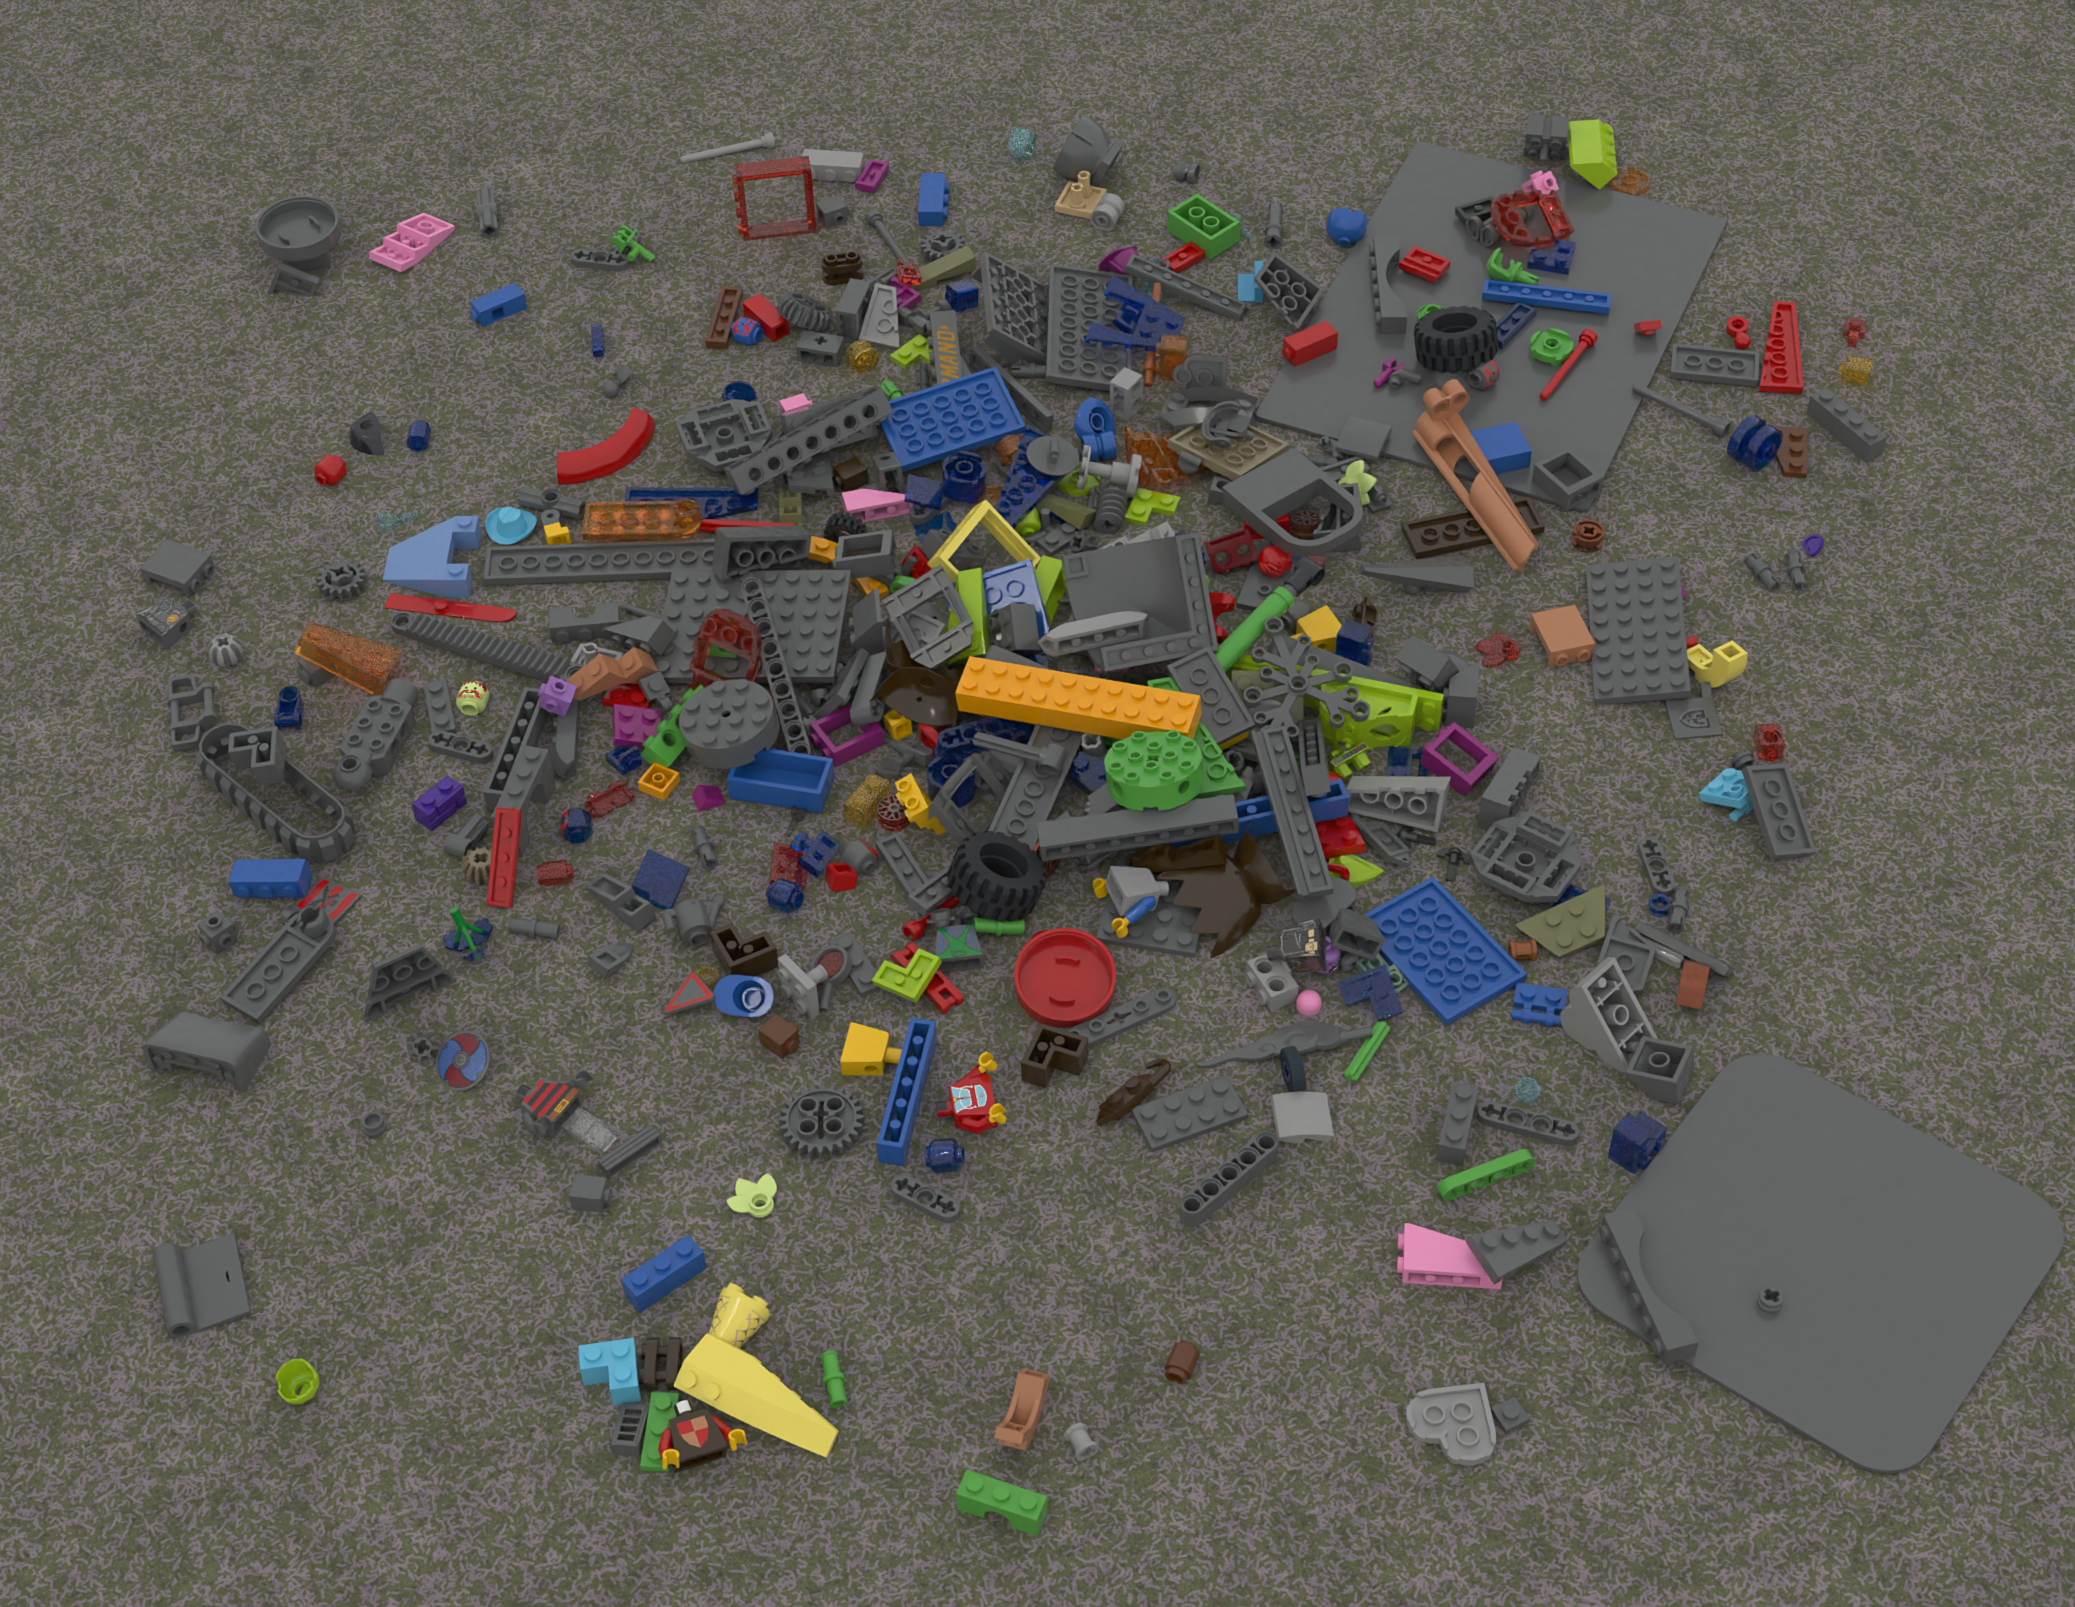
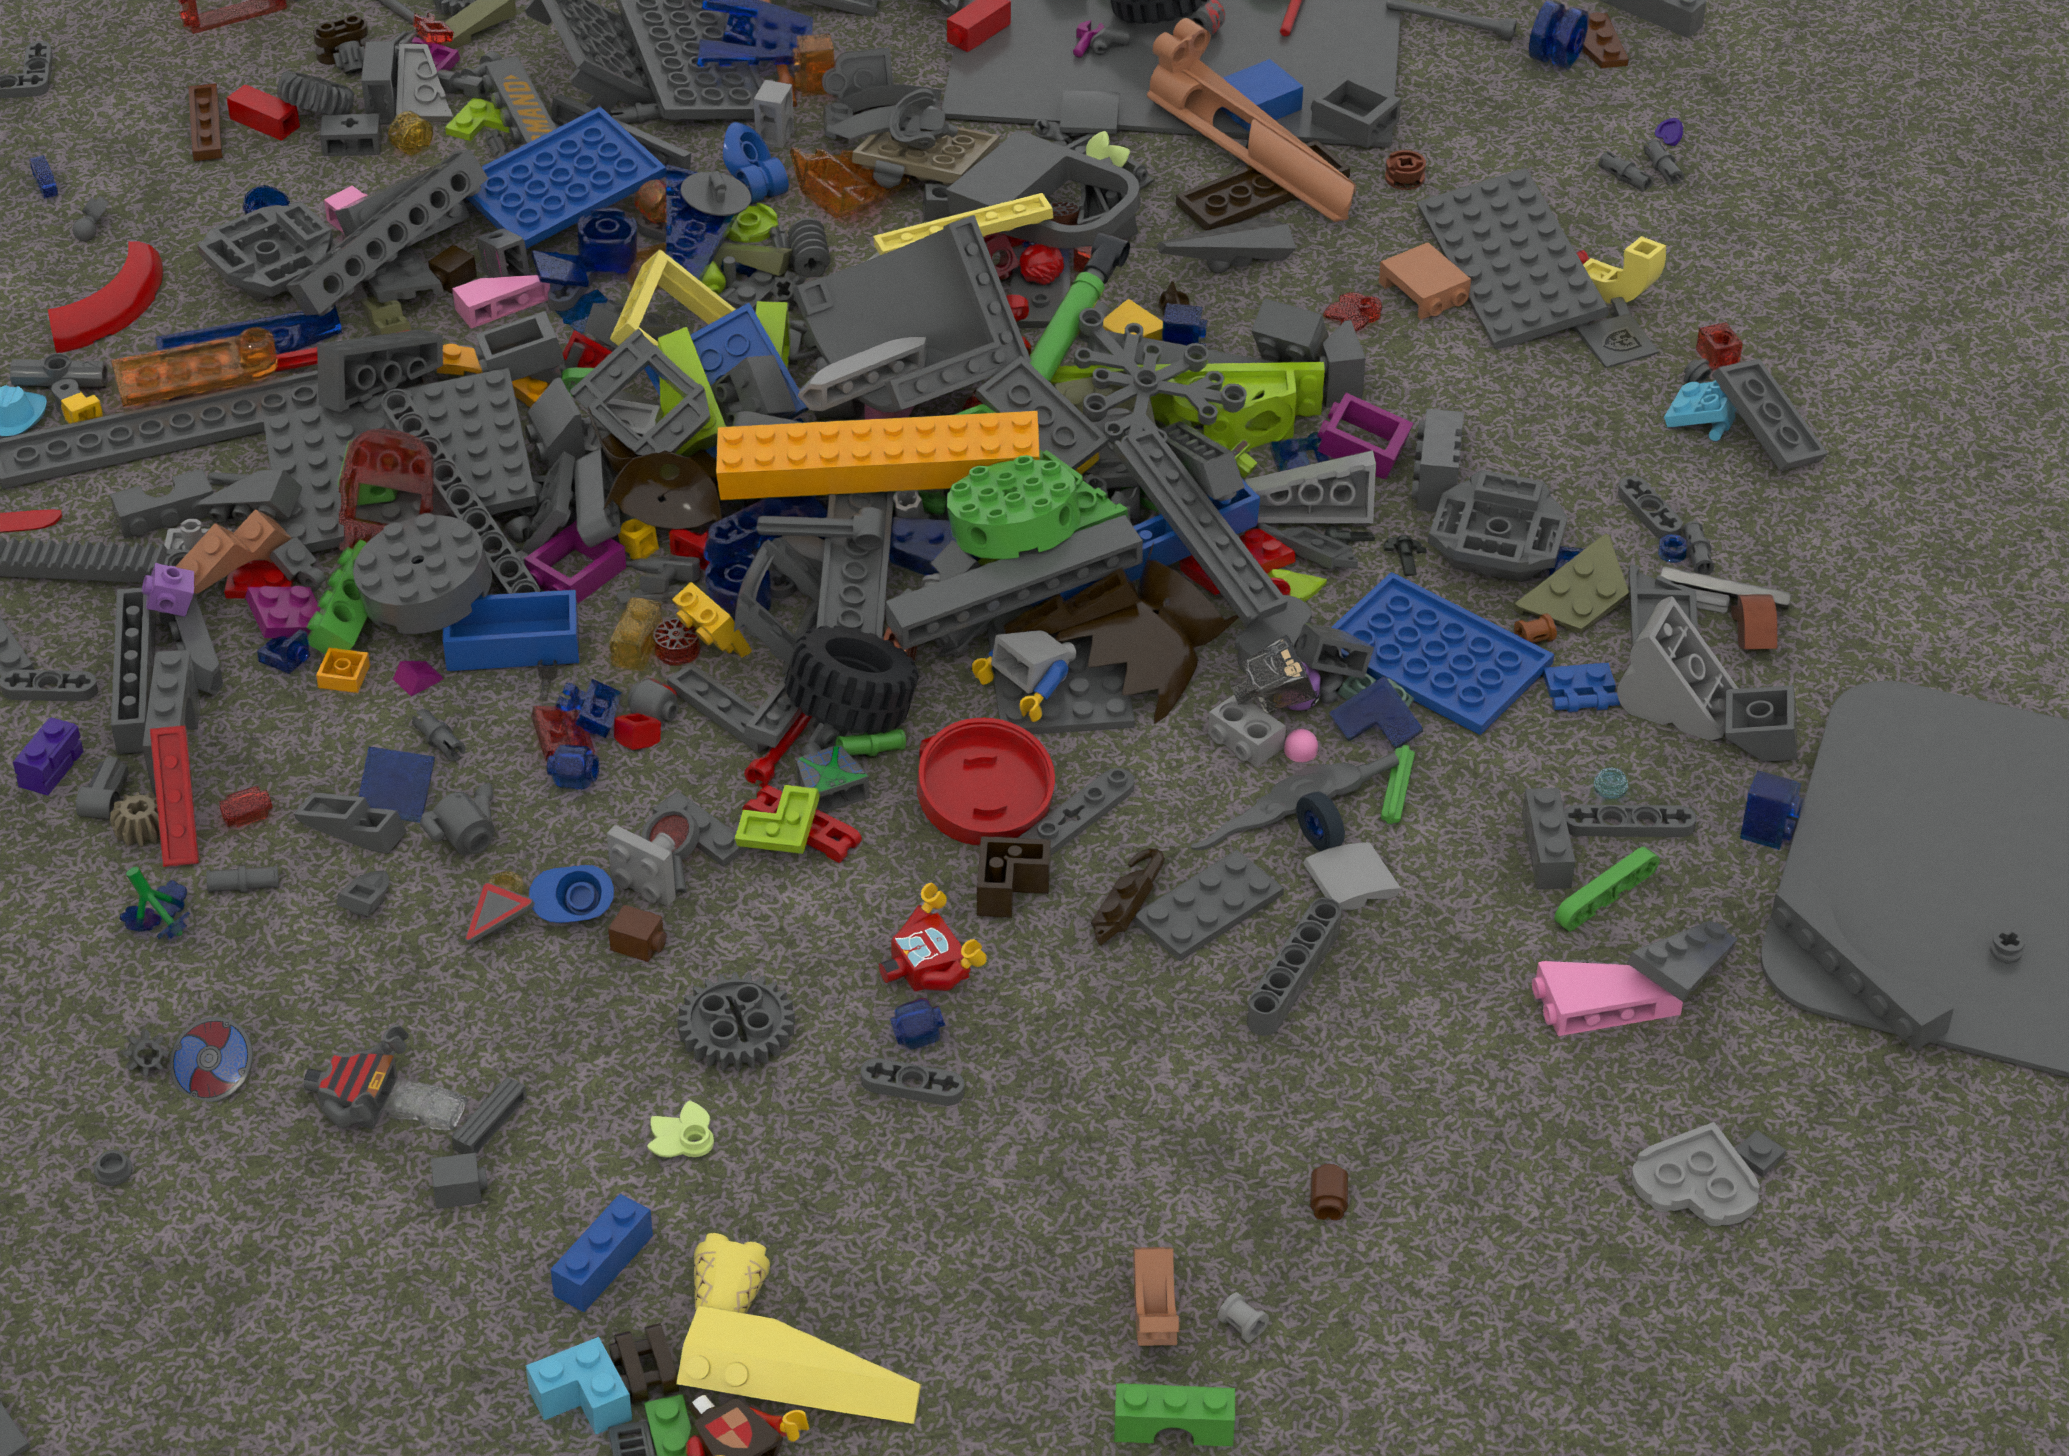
camera: 20 degrees left, 5 degrees down
(402, 976) = (87, 971): dark grey wedge -> none
(472, 698) = (42, 622): yellowish green head -> none
(576, 825) = (251, 744): clear blue head -> none
(600, 802) = (290, 694): clear red hinge -> none
(624, 238) = (35, 51): bright green arm -> none
(744, 956) = (541, 847): dark brown brick -> none
(746, 331) = (243, 132): blue head -> none
(833, 1379) = (885, 1325): bright green pin -> none
(840, 283) = (350, 57): none -> dark grey gear
(843, 523) = (471, 319): black tyre -> none
(867, 1051) = (764, 925): yellow torso -> none
(907, 1092) = (838, 959): blue brick -> none
(941, 917) = (795, 745): dark grey plate -> none
(962, 295) = (513, 41): clear blue brick -> none
(1118, 472) = (802, 201): light grey piece -> none
(1150, 501) = (847, 233): lime plate -> none
(1218, 523) = (990, 220): none -> light yellow plate

